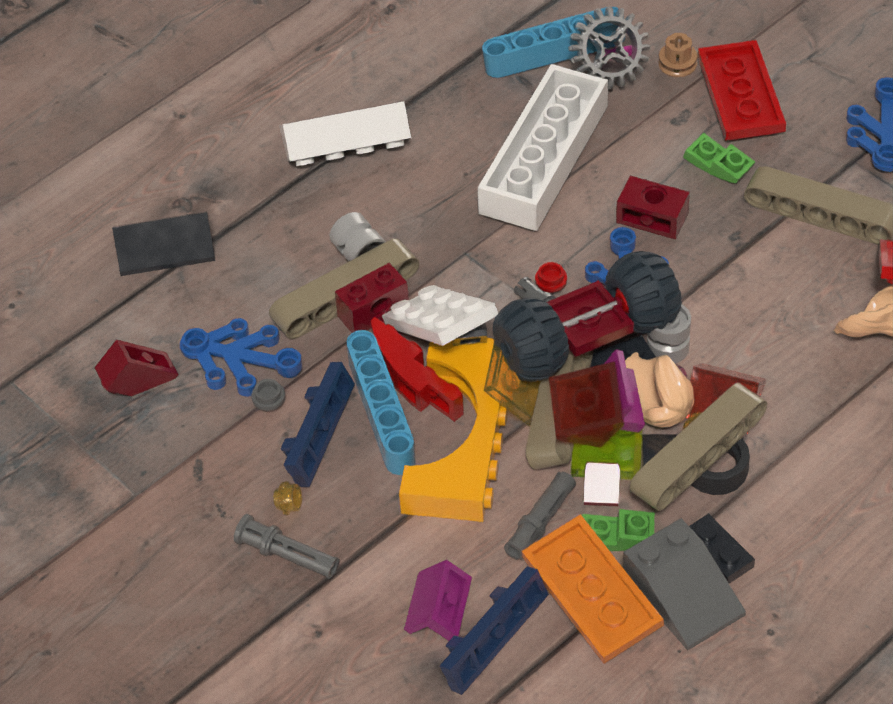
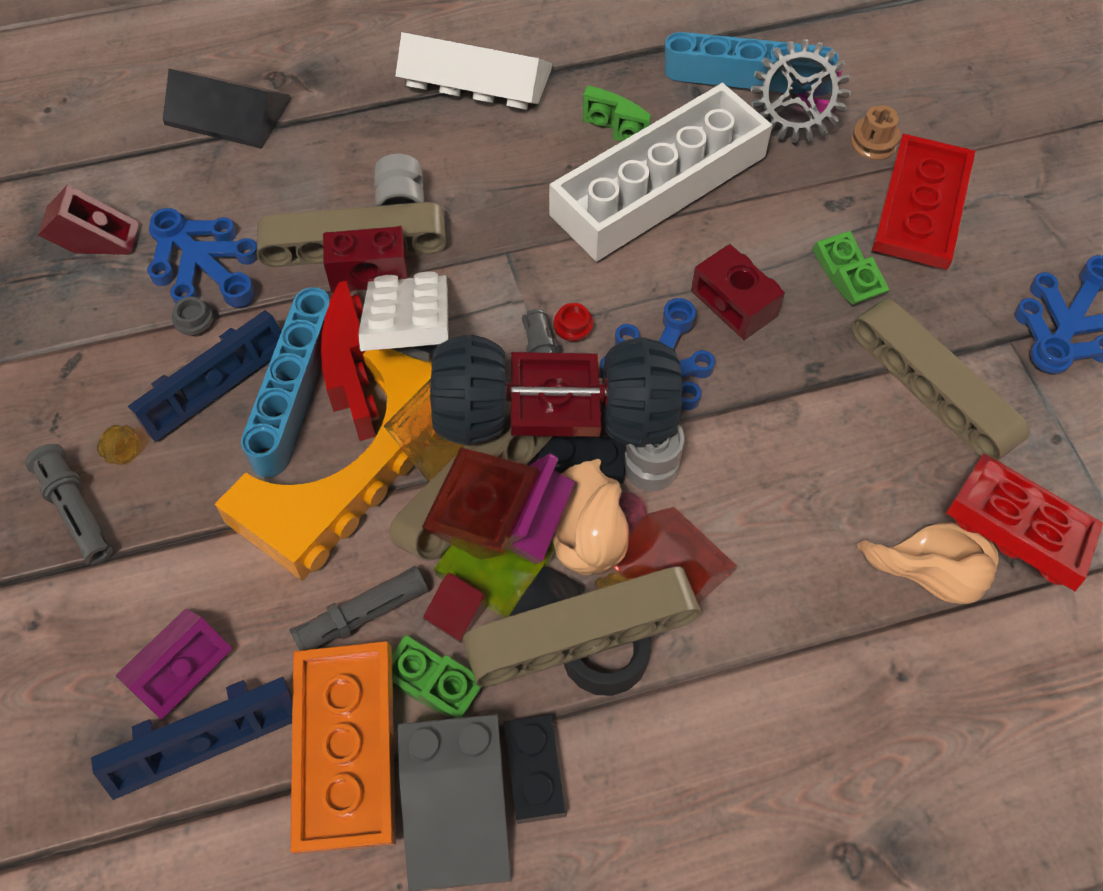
camera: 25 degrees right, 10 degrees up
(489, 120) = (615, 112): none -> bright green slope

